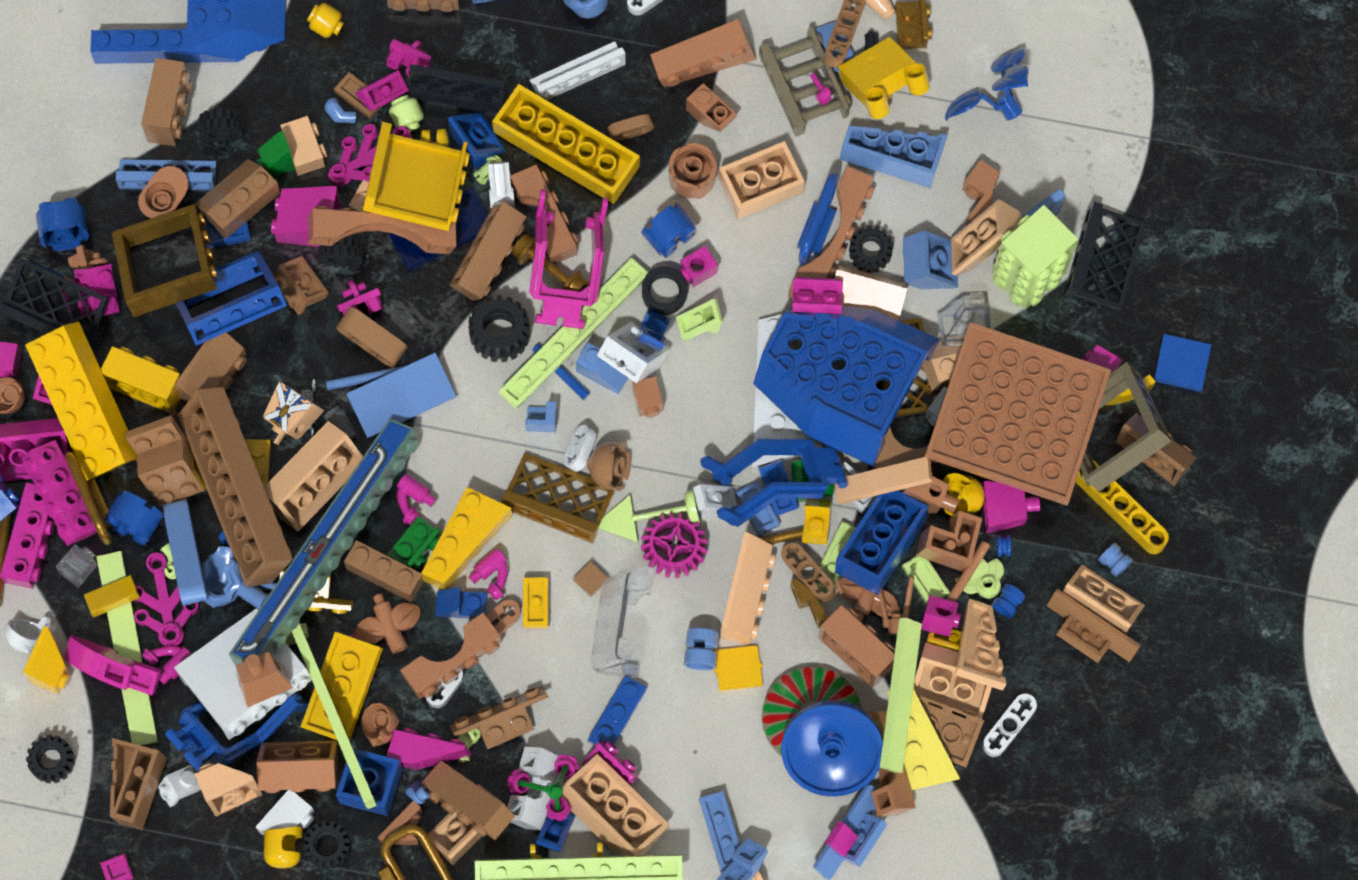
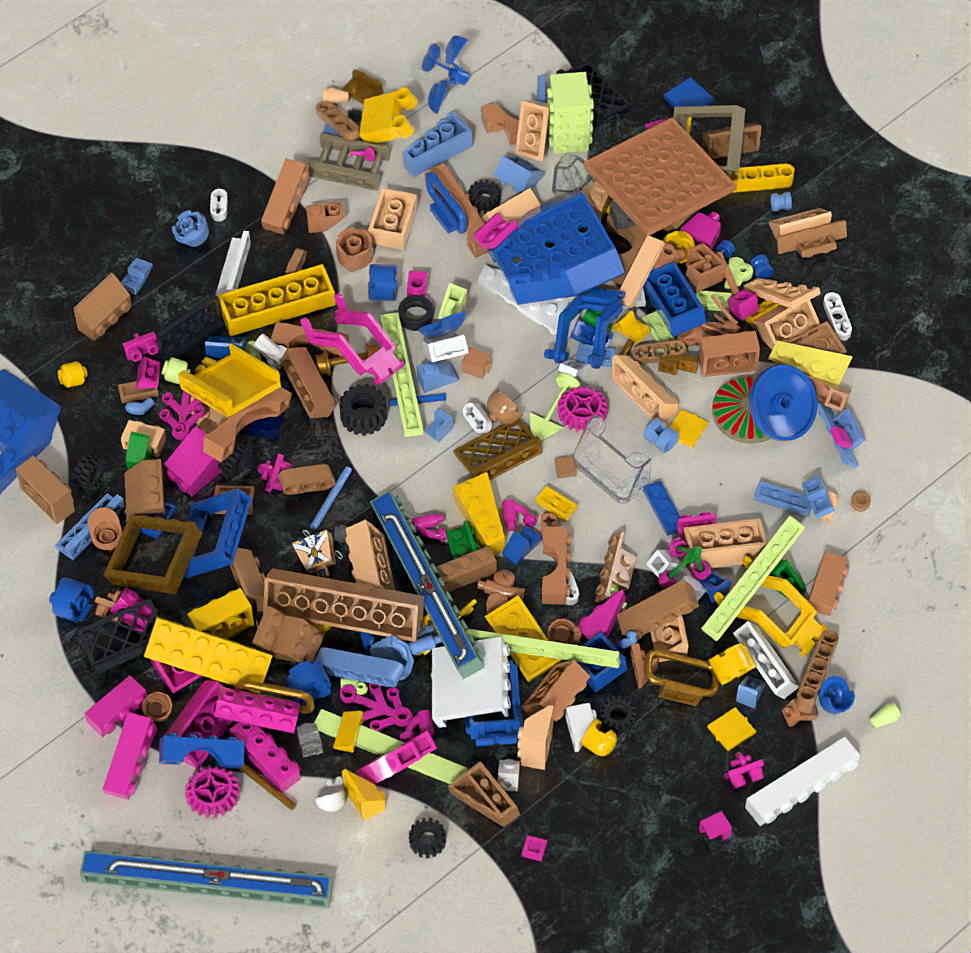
camera: 50 degrees left, 15 degrees down
(261, 678) = (490, 660): nougat torso -> none
(401, 394) = (357, 488): medium blue tile -> none
(900, 695) = (780, 345): yellowish green tile -> none

